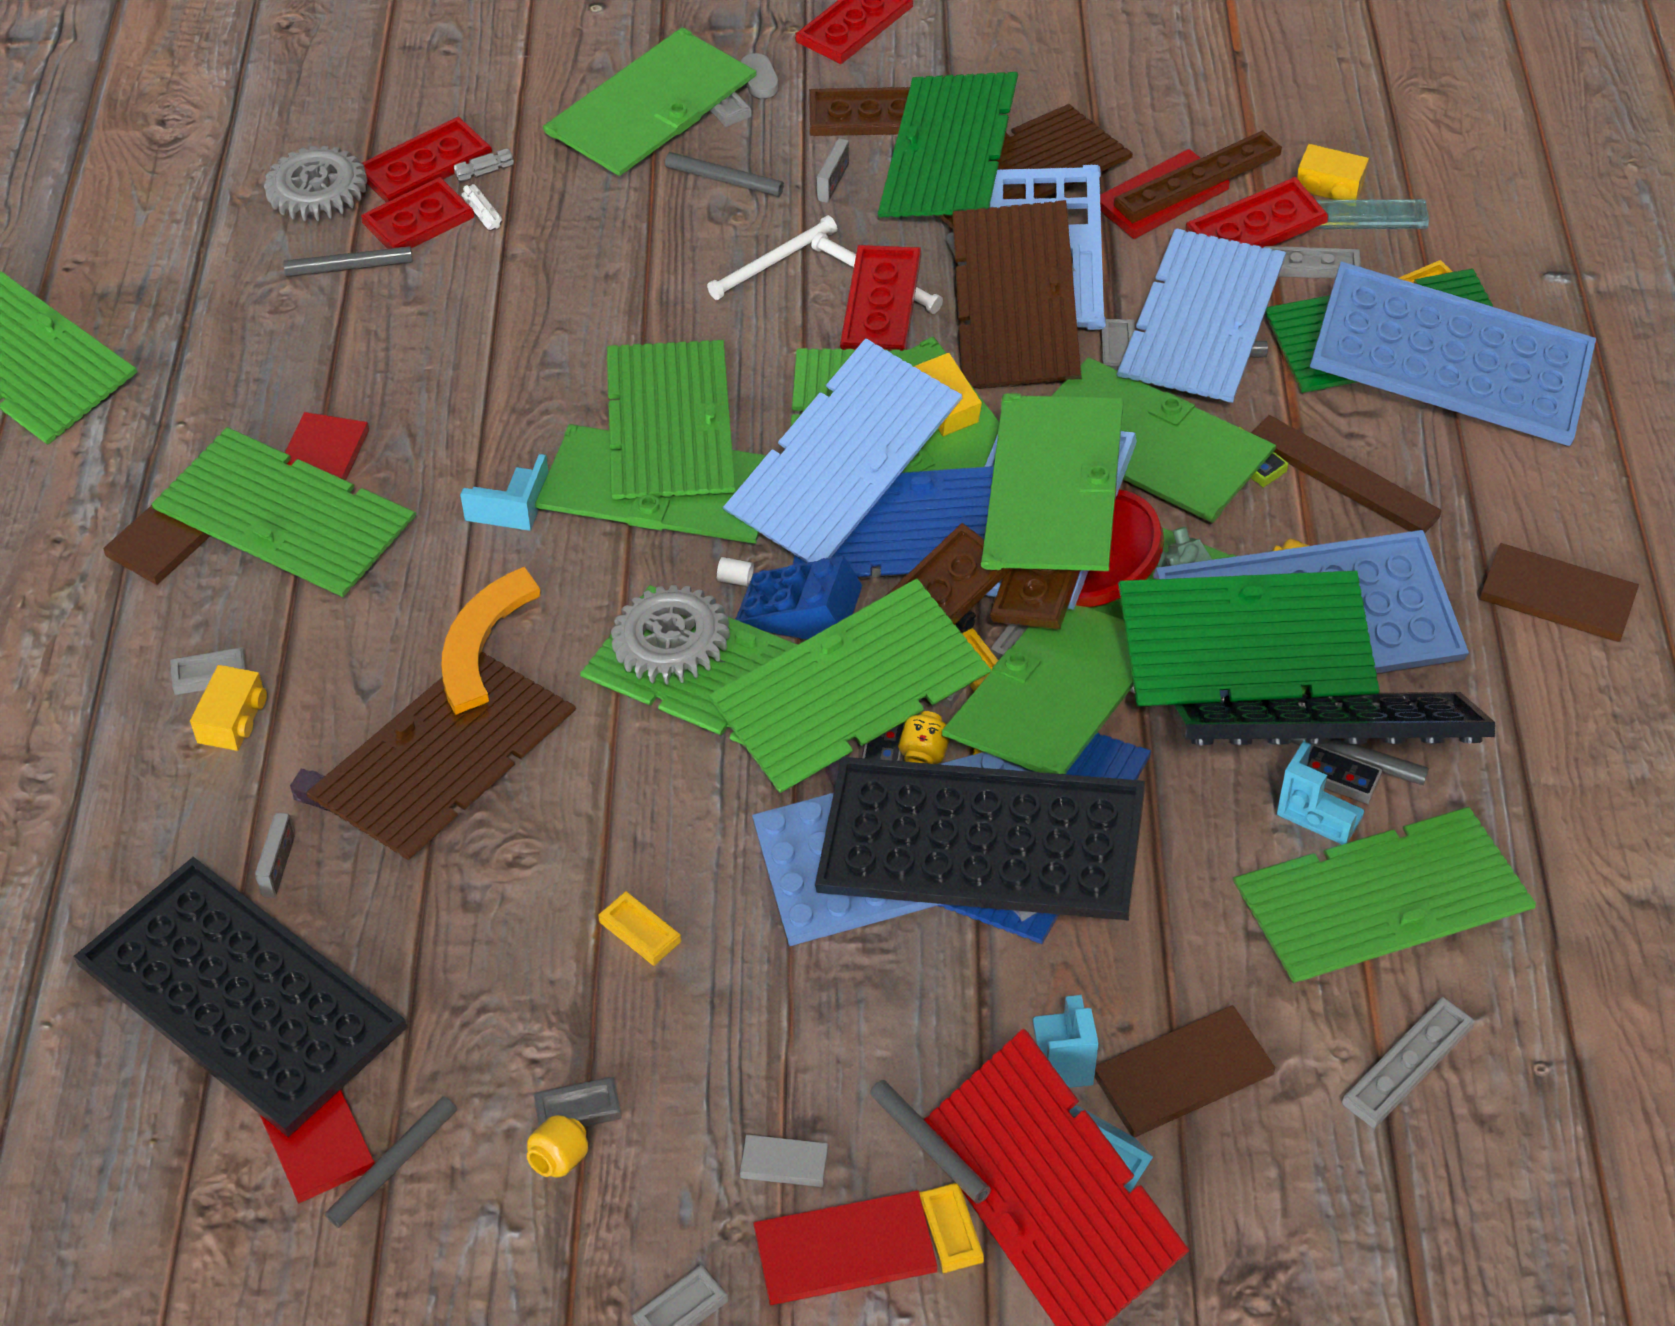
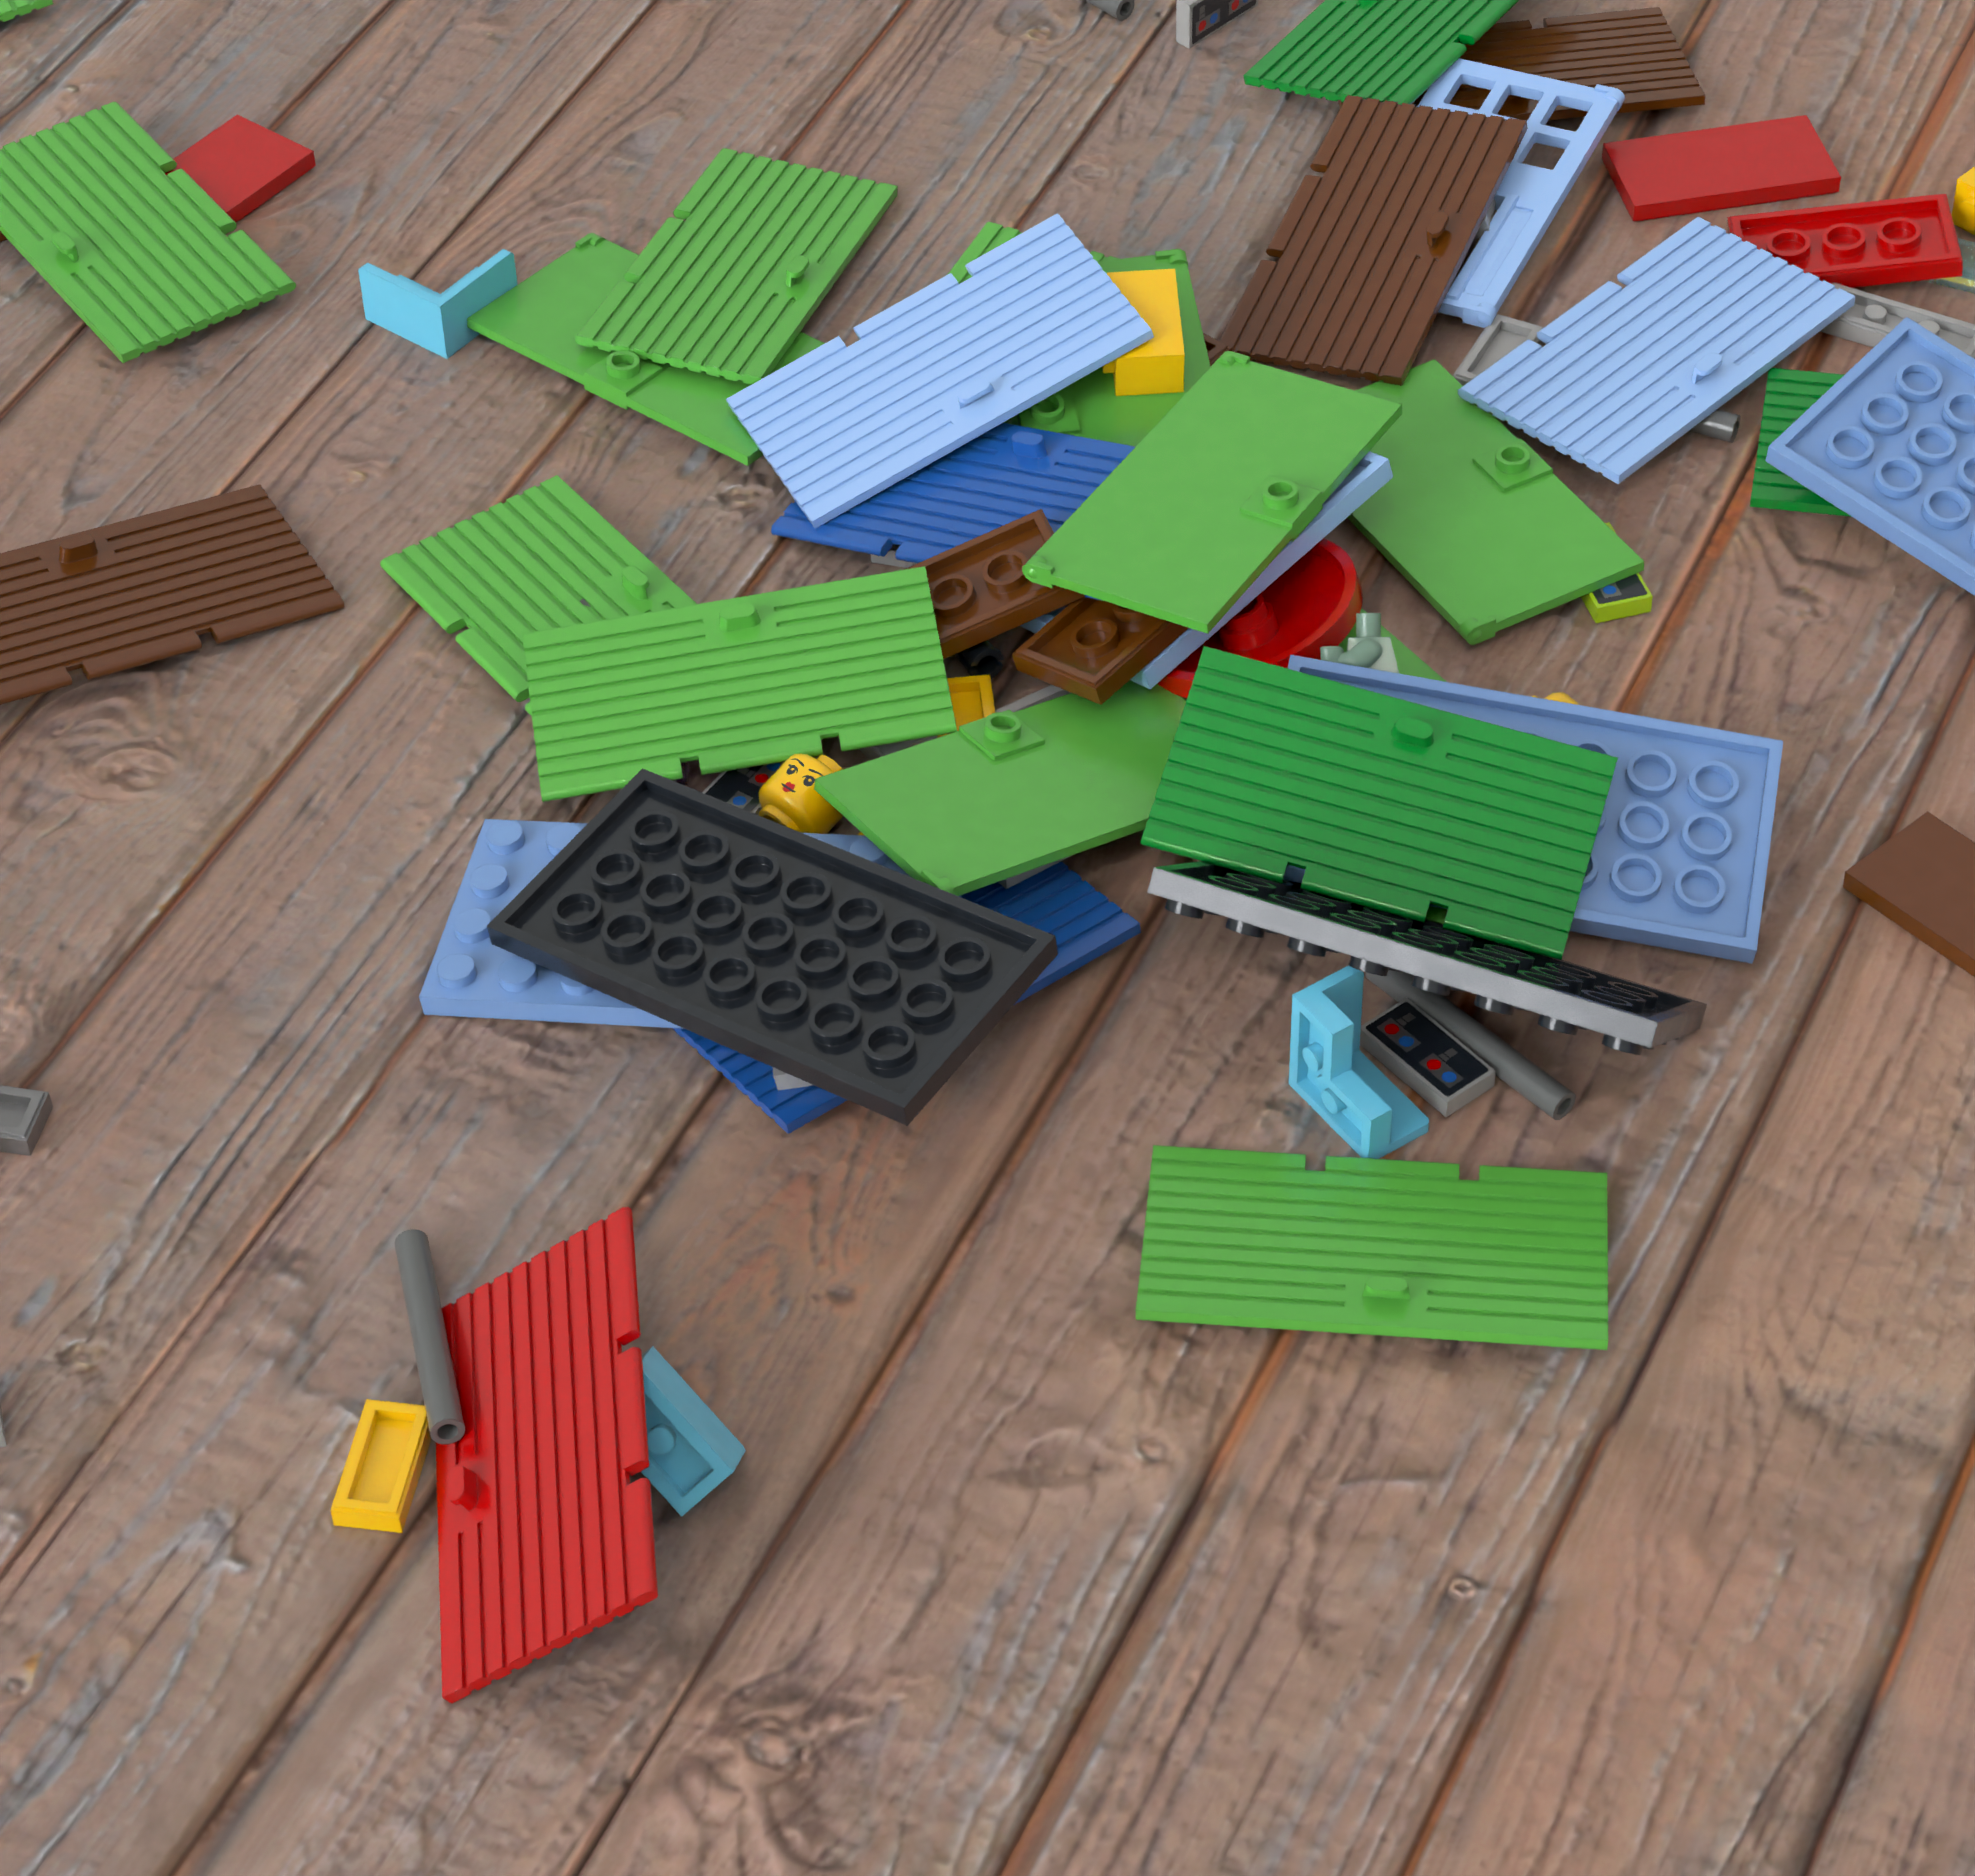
camera: 25 degrees right, 5 degrees down
(472, 629) = (213, 493): light orange tile -> none
(639, 928) = (227, 917): yellow tile -> none
(672, 644) = (538, 550): light grey gear -> none
(717, 288) = (1048, 95): white bar -> none
(735, 571) = (691, 494): white hinge -> none
(784, 1160) = (210, 1289): light grey tile -> none
(801, 597) = (759, 549): blue slope -> none
(821, 242) = (1246, 221): white bar -> none
(844, 1247) = (212, 1434): red tile -> none
(881, 297) = (1169, 186): red tile -> none
(1069, 1042) = (716, 1290): medium azure panel -> none
(1183, 1071) = (881, 1382): reddish brown tile -> none
(1197, 176) = (1789, 154): reddish brown tile -> none
(1348, 477) = (1742, 647): reddish brown tile -> none
(1408, 1062) = (1246, 1498): light grey tile -> none

